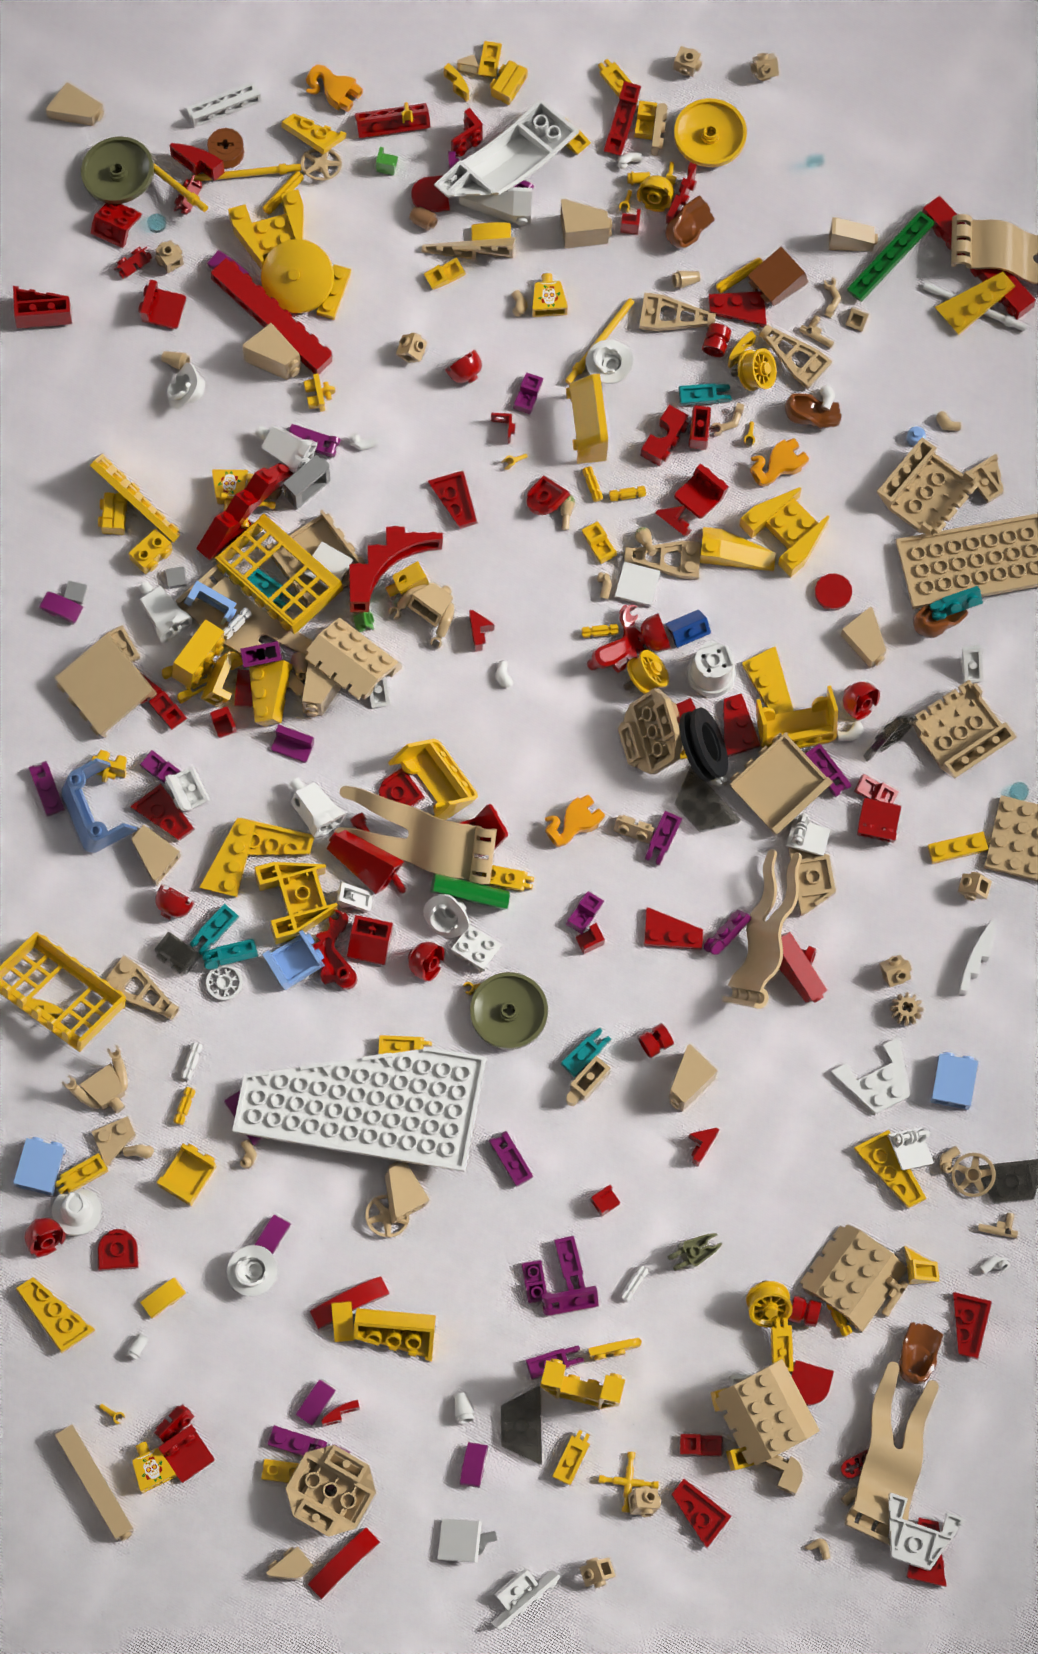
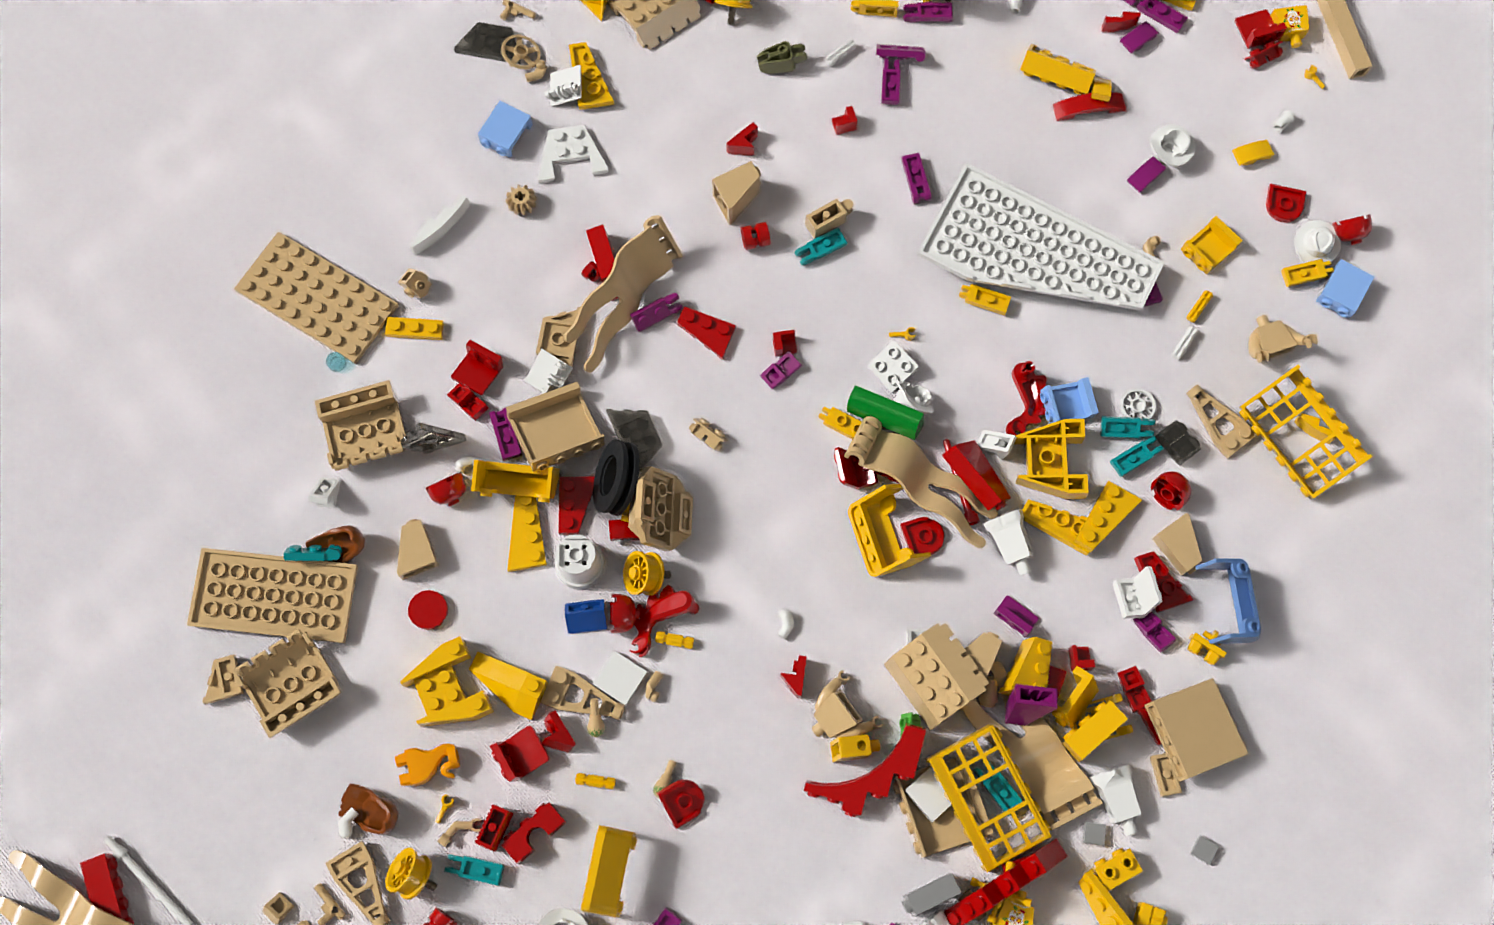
camera: 160 degrees left, 0 degrees up
(47, 789) = (1273, 645): magenta plate -> none
(56, 1318) = (1352, 163): yellow wing -> none
(61, 606) = (1224, 835): magenta slope -> none
(113, 1138) = (1270, 297): tan wing -> none
(138, 1150) = (1252, 277): tan arm -> none
(212, 598) = (1068, 785): light blue panel -> none
(237, 622) = (1044, 759): white axle -> none
(370, 940) = (990, 401): red slope -> none
(383, 1217) = (1039, 163): tan wheel -> none
(403, 1192) = (1021, 169): tan slope -> none
(425, 960) = (945, 365): red cylinder -> none
(456, 498) = (775, 831): red wing -> none
(507, 419) = (691, 895): red bracket -> none
(509, 1010) = (880, 297): olive dish -> none
(512, 460) = (702, 856): yellow hand -> none
(534, 1280) = (925, 78): magenta slope -> none
(576, 820) = (761, 455): light orange hips -> none
(592, 484) = (627, 803): yellow axle -> none
(599, 542) = (643, 735): yellow slope -> none
(664, 836) = (683, 417): magenta hinge -> none
(747, 341) = (420, 906): yellow slope -> none
(895, 970) = (517, 232): tan brick -> none
(915, 434) = (275, 751): light blue piece -> none
(945, 422) = (238, 756): tan arm -> none
(973, 303) = (151, 881): yellow wing -> none

